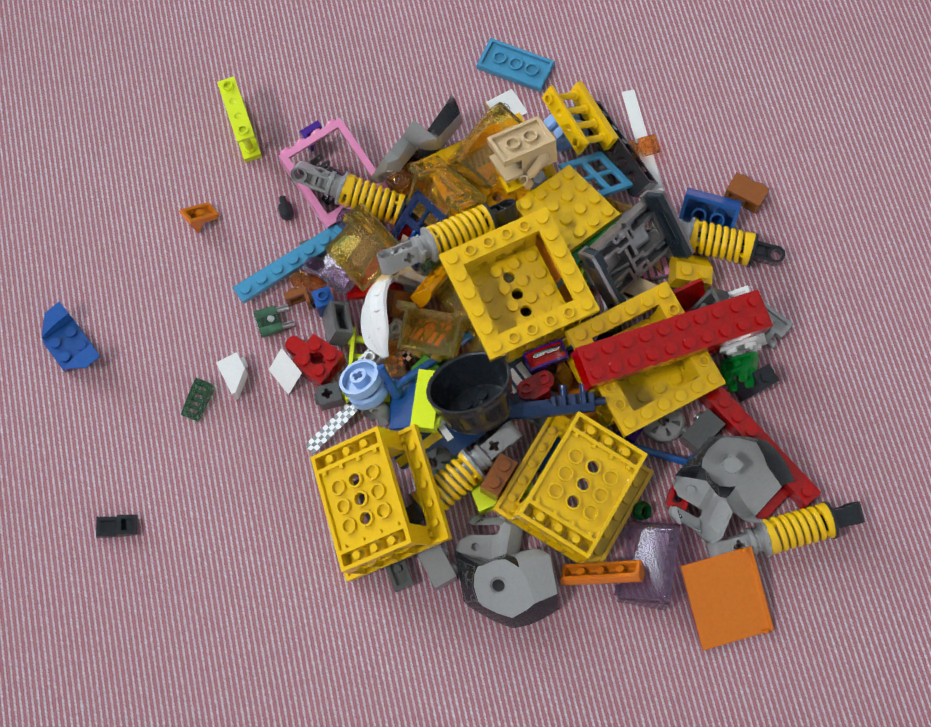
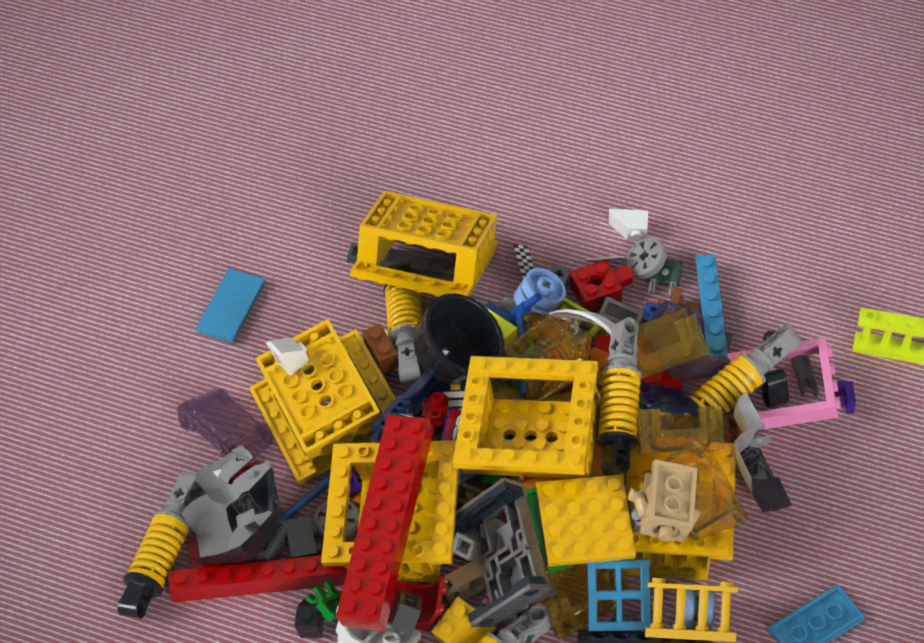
camera: 120 degrees right, 15 degrees down
(67, 340) = (749, 126): blue piece -> none
(116, 526) = (555, 95): black slope -> none
(199, 214) = (813, 264): orange slope -> none
(203, 402) = (630, 202): clear green slope -> none
(255, 333) = (644, 266): none -> light grey wheel
(438, 567) = (343, 285): light grey brick -> none
(501, 579) = (296, 306): light grey piece -> none
(510, 100) = (769, 587): white sticker -> none
(523, 654) = (230, 305): none -> dark azure tile
(577, 517) = (288, 354): none -> white slope
(602, 573) = (236, 385): orange brick -> none
(642, 510) = (273, 453): dark green plate -> none
(726, 598) = (149, 463): orange container -> none

